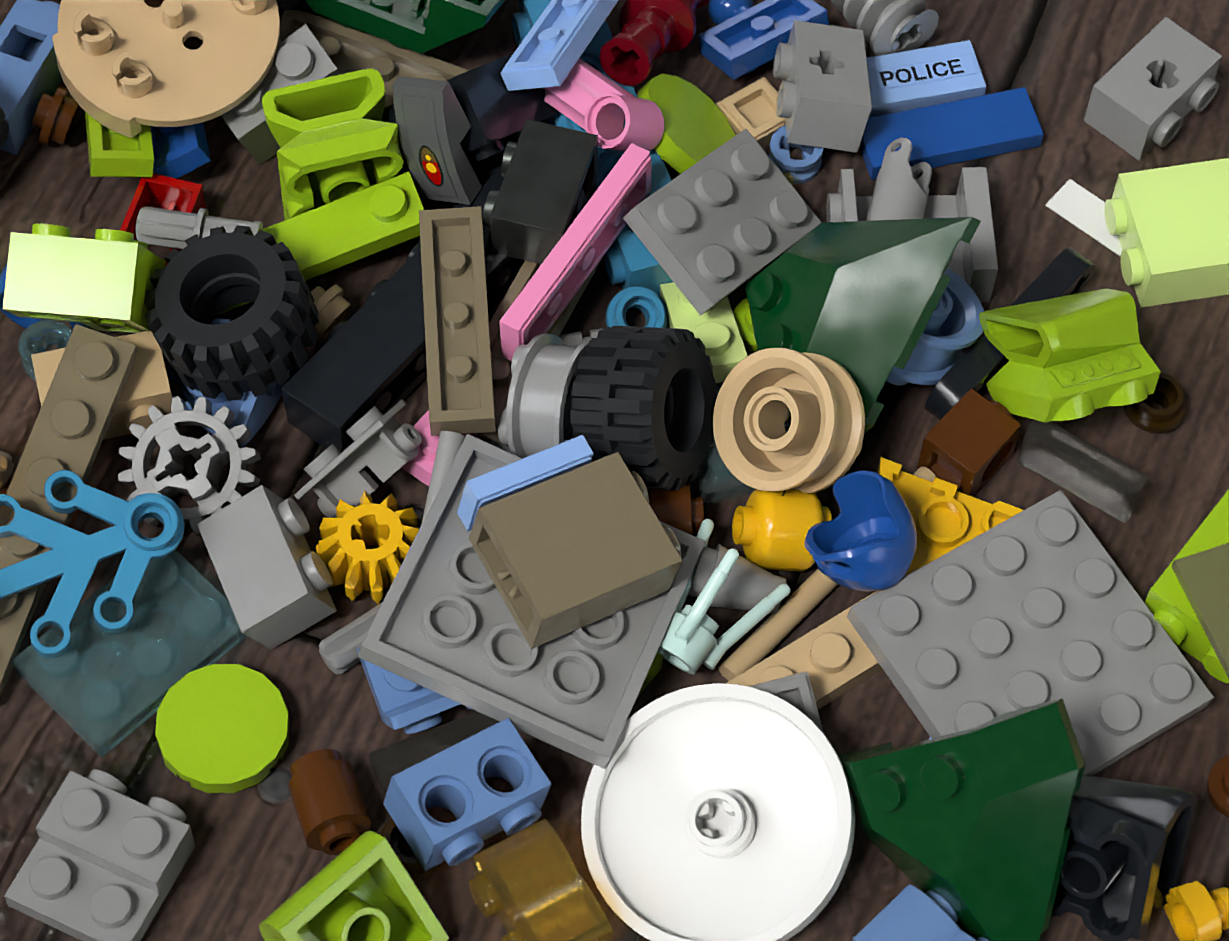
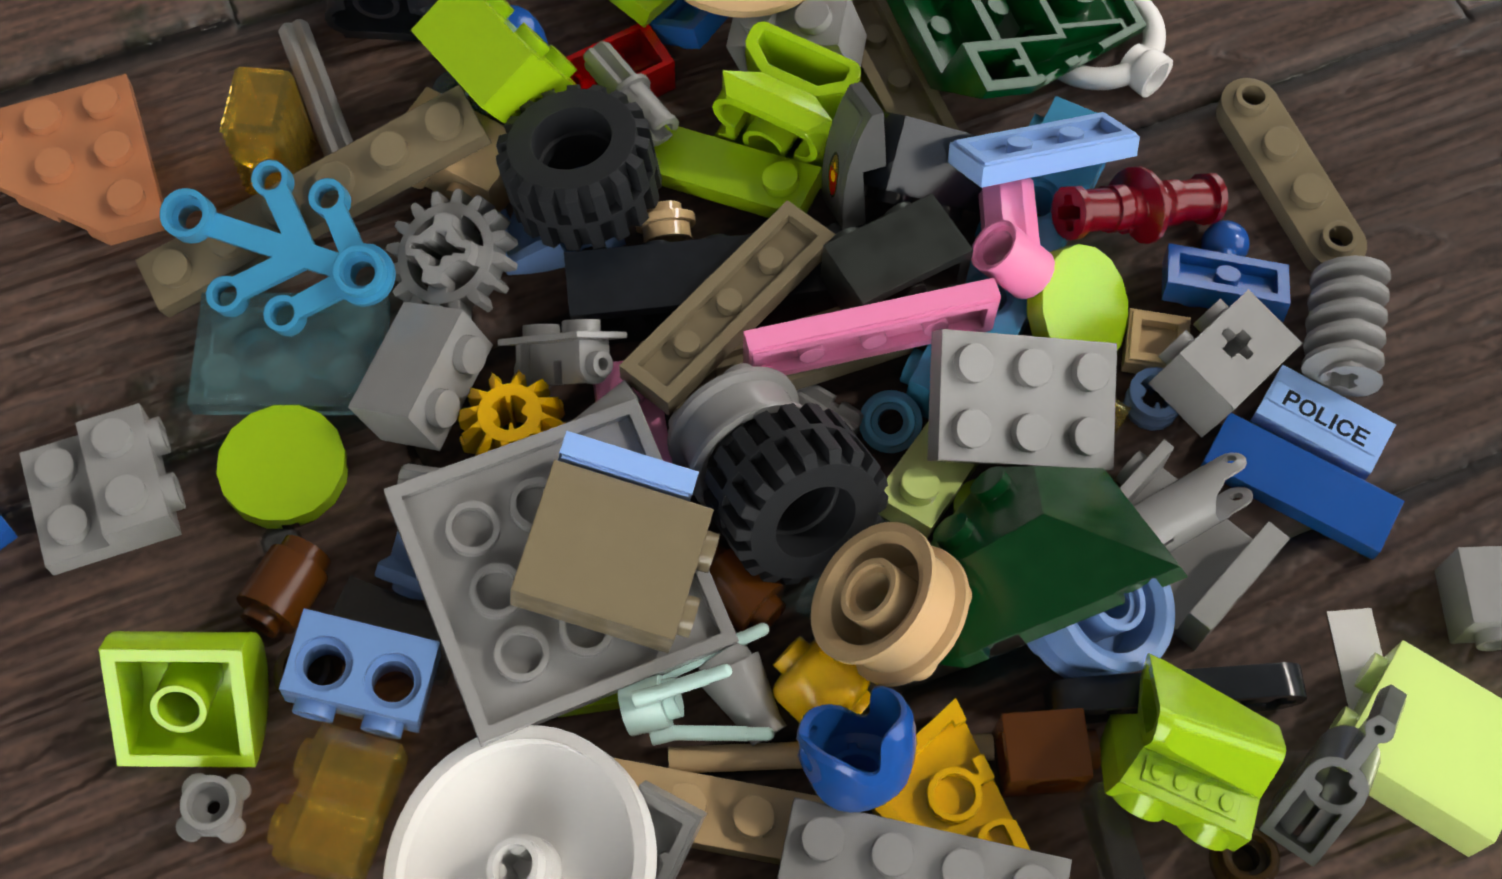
camera: 45 degrees right, 5 degrees up
(1170, 318) = (1325, 796): none -> dark grey piece

